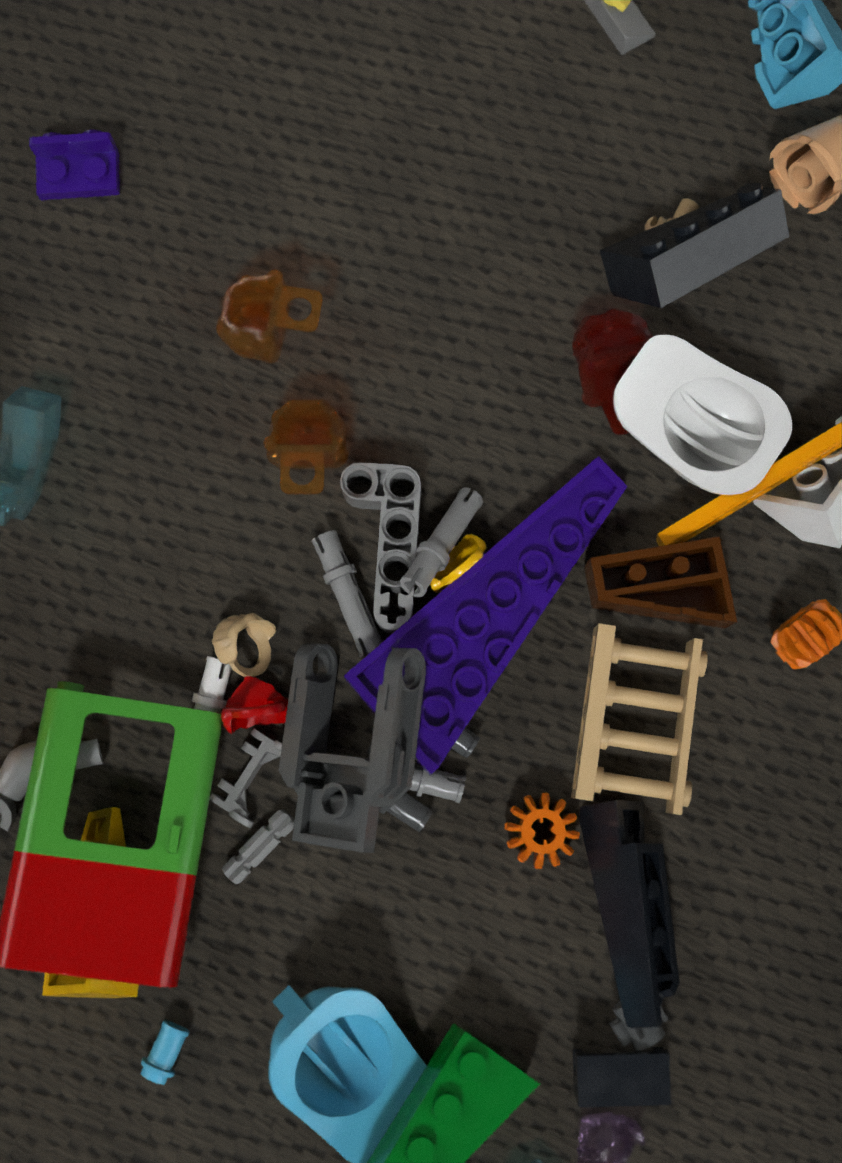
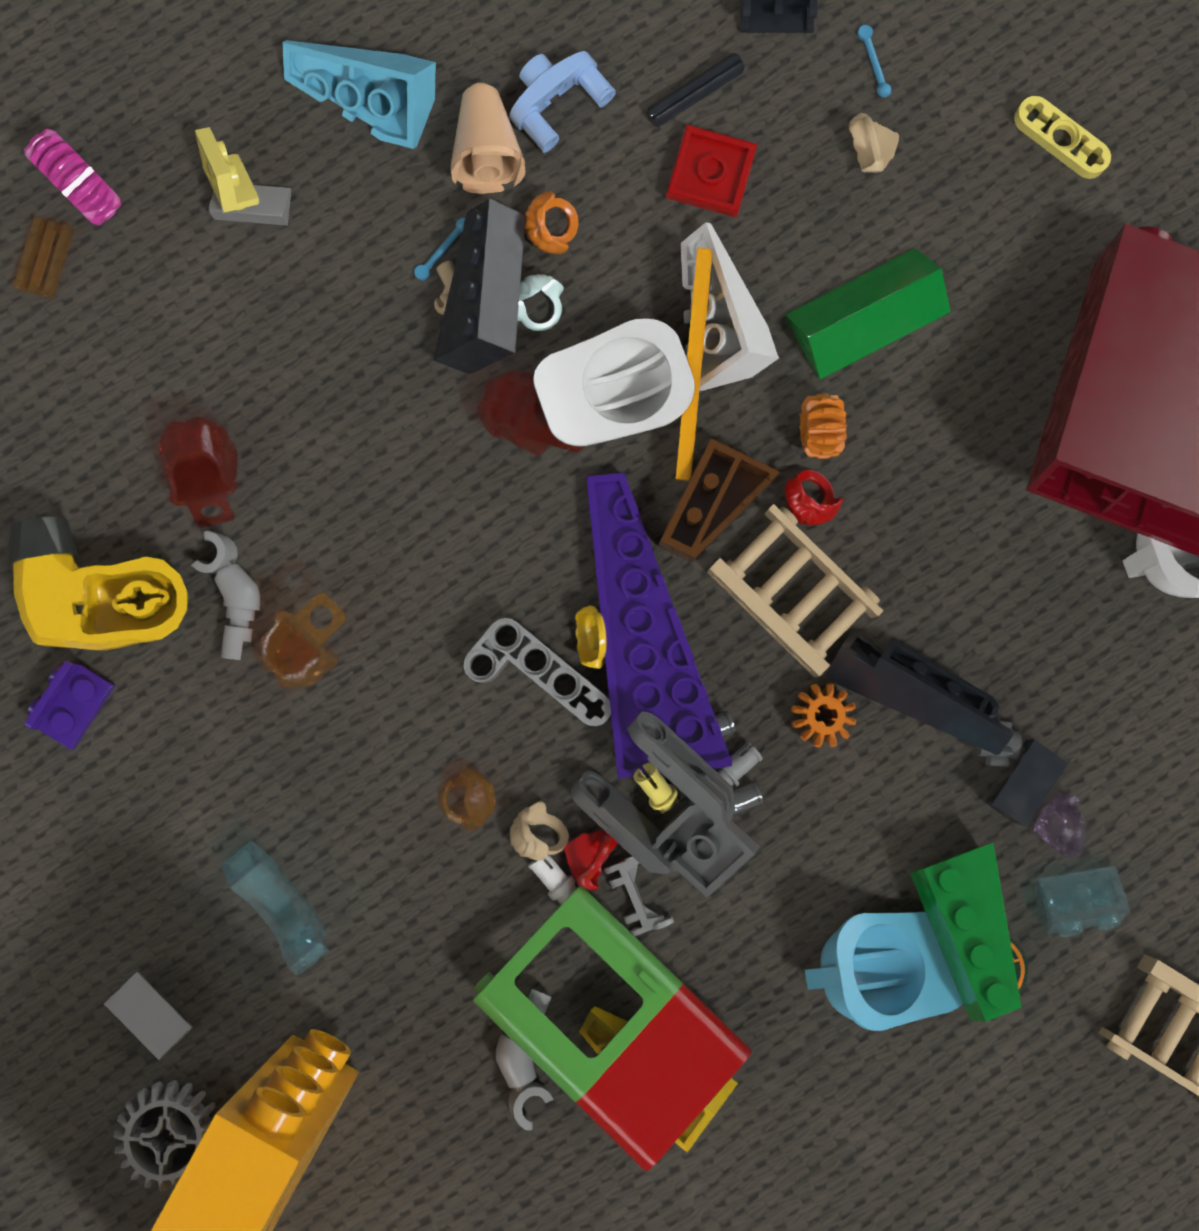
camera: 60 degrees left, 5 degrees up
(165, 1050) = (788, 1091): medium azure pin -> none
(172, 119) = (89, 604): none -> yellow piece
(235, 566) = (478, 799): none -> clear orange piece
(258, 846) = (691, 924): light grey axle -> none
(274, 232) = (238, 590): none -> light grey piece
(306, 437) = (418, 678): clear orange piece -> none
(346, 589) = (555, 731): light grey pin -> none
(357, 123) = (199, 467): none -> clear red piece
(358, 726) = (660, 793): none -> light yellow piece
(434, 553) = (574, 649): light grey pin -> none
(670, 191) = (422, 271): none -> dark azure hinge
(721, 674) = (804, 507): none -> red piece
(742, 303) = (532, 285): none -> light aqua piece
(783, 257) = (536, 228): none -> orange piece

